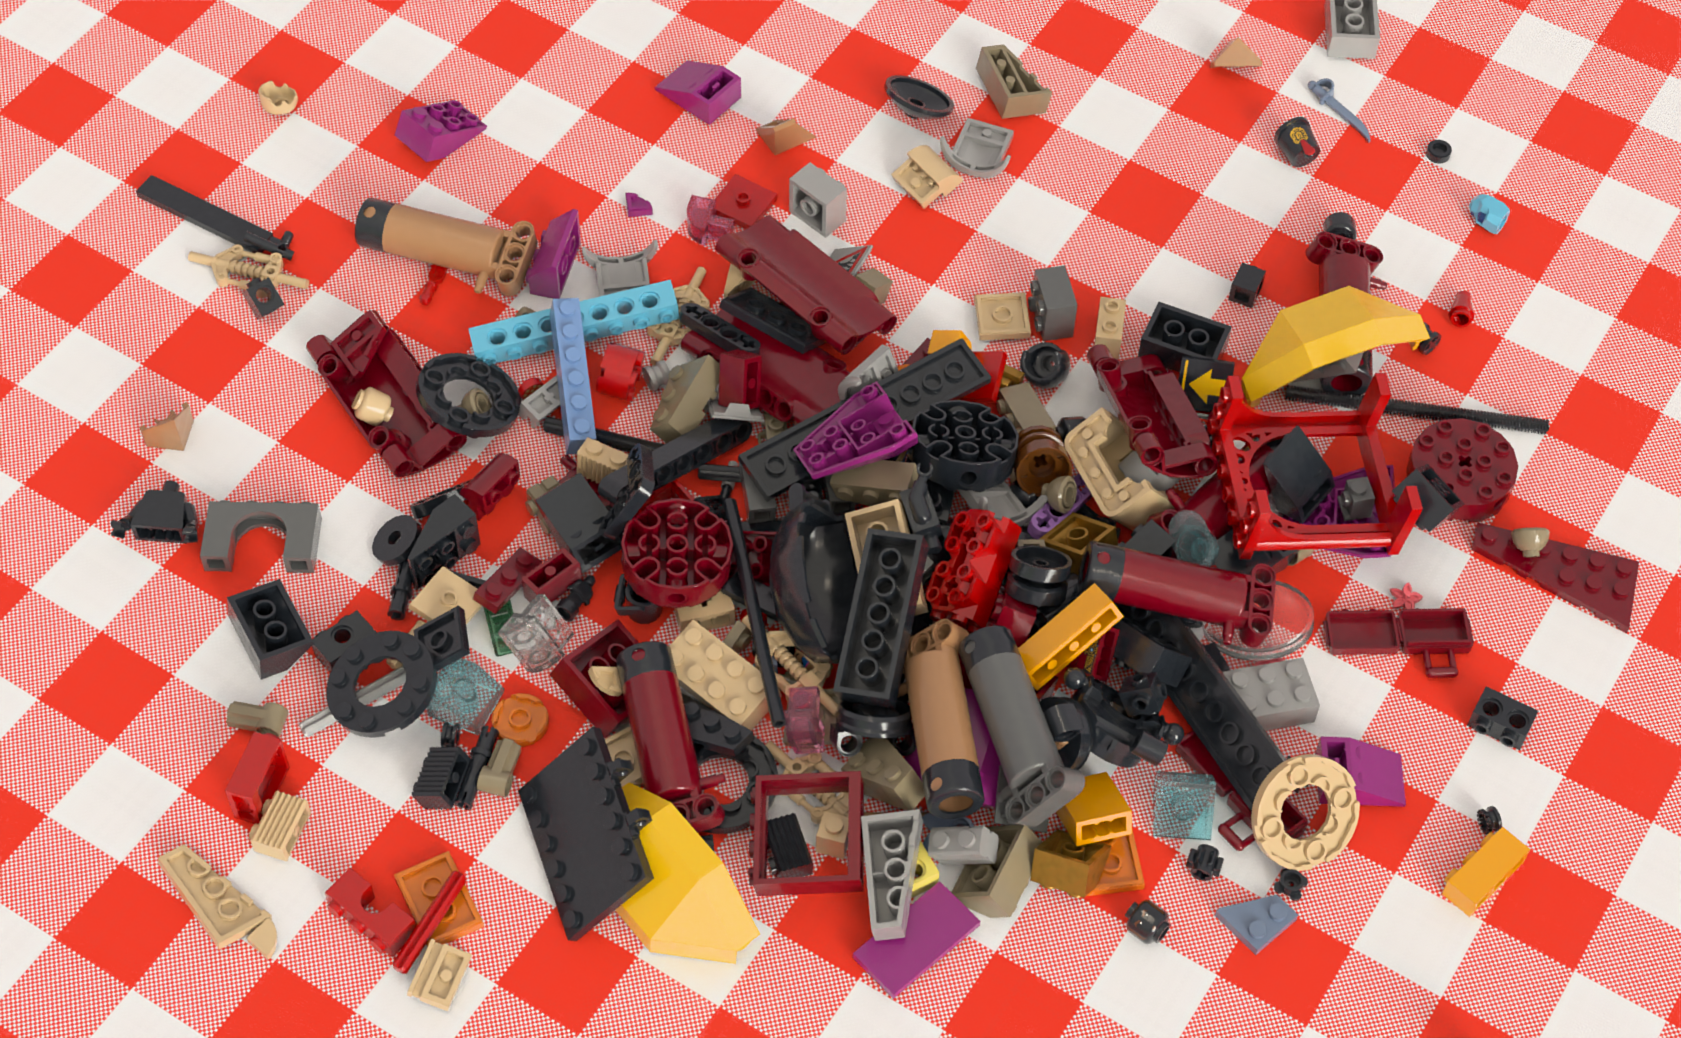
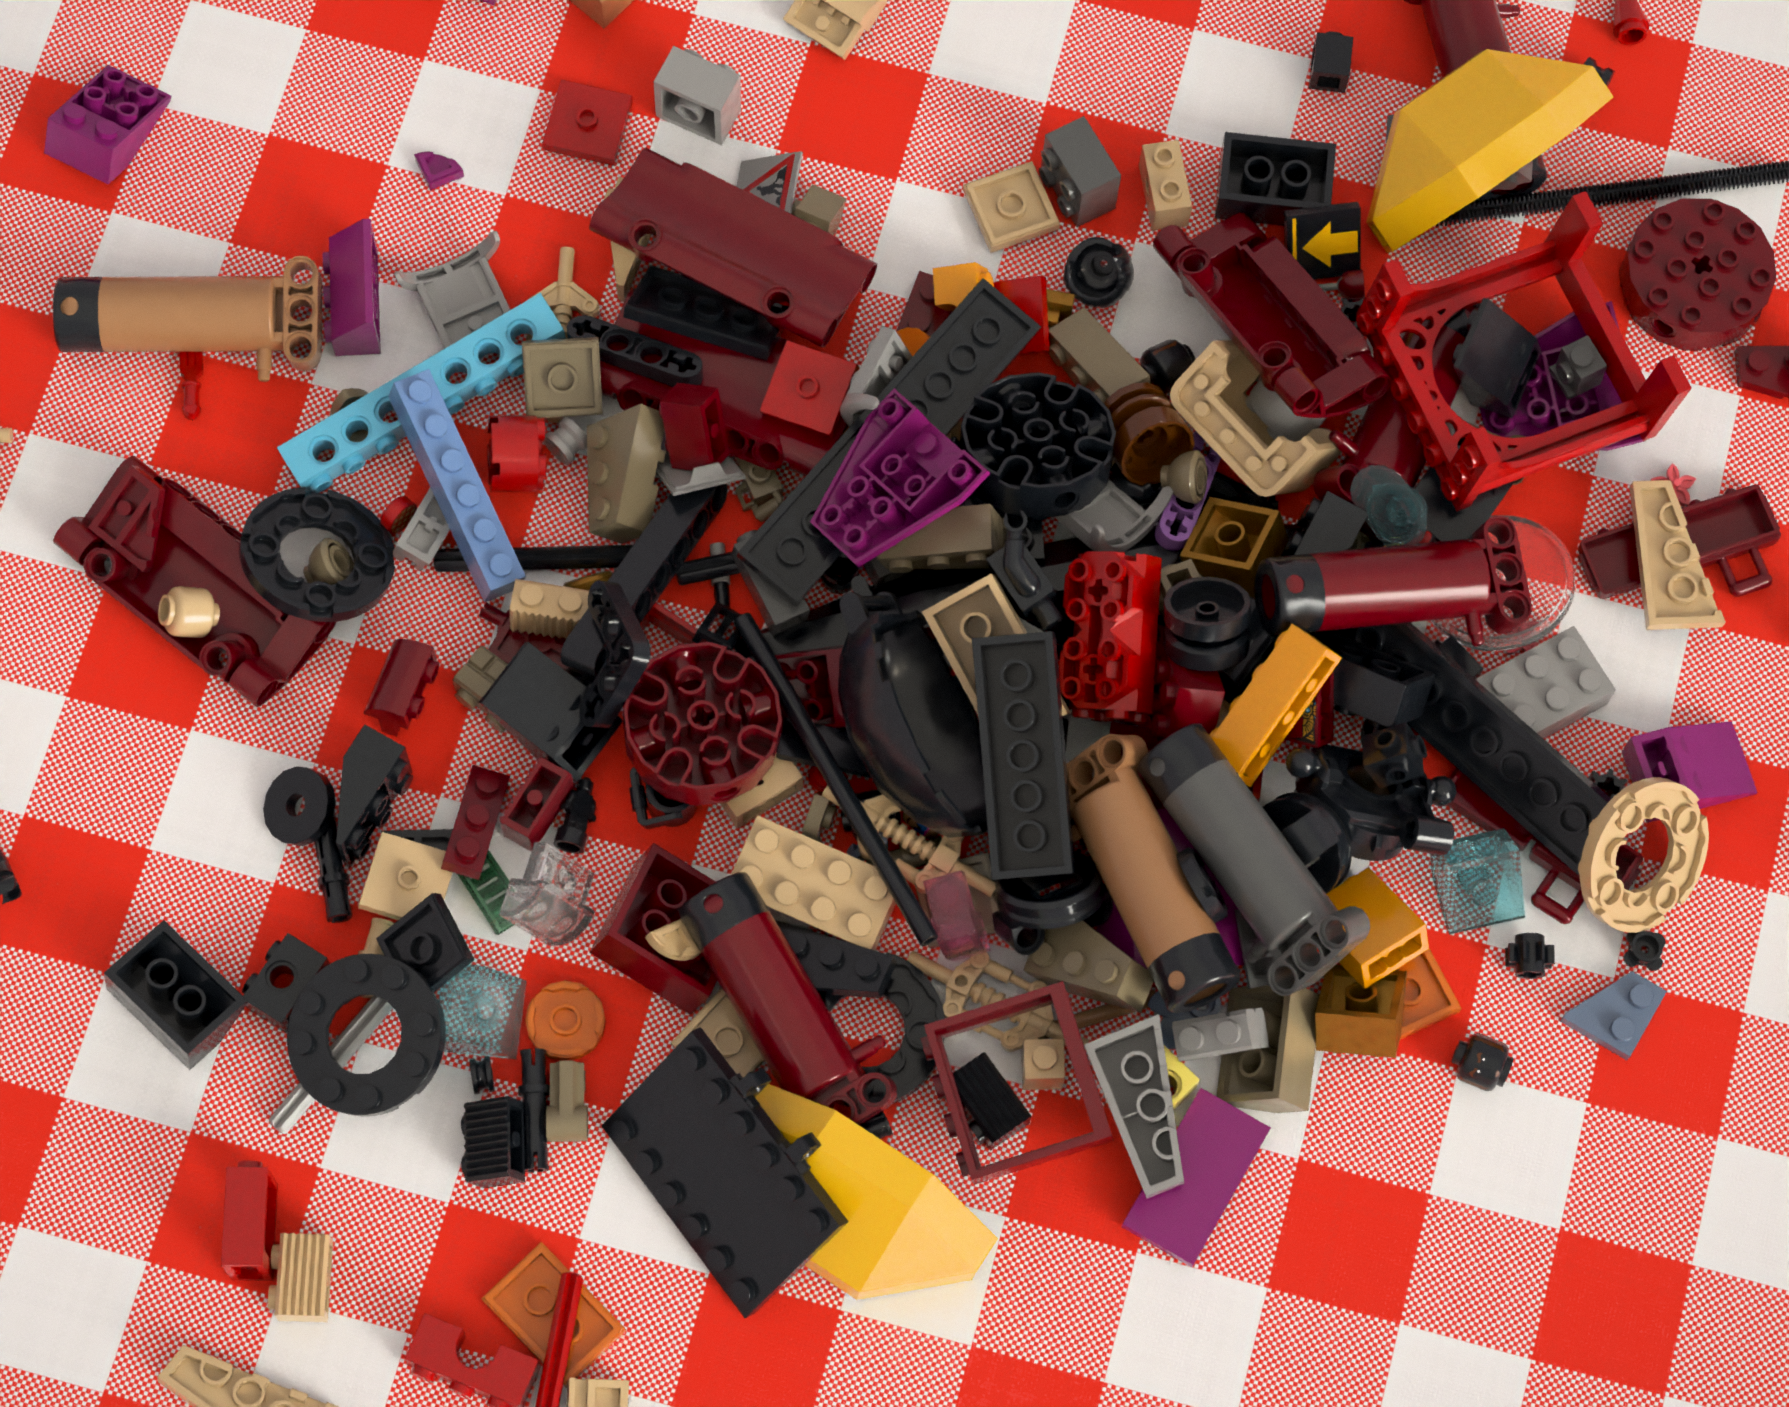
camera: 20 degrees left, 15 degrees up
(231, 520) = (52, 843): dark grey arch -> none
(257, 718) = (222, 1130): dark tan piece -> none
(425, 506) = (337, 722): black beam -> none
(667, 333) = (562, 377): none -> dark tan tile
(703, 222) = (543, 177): clear pink brick -> none
(821, 375) = (808, 388): none -> red plate
(977, 732) = (1202, 884): none -> black tile
(1384, 640) = (1669, 565): none -> tan wing
(1435, 495) = (1671, 330): black brick -> none

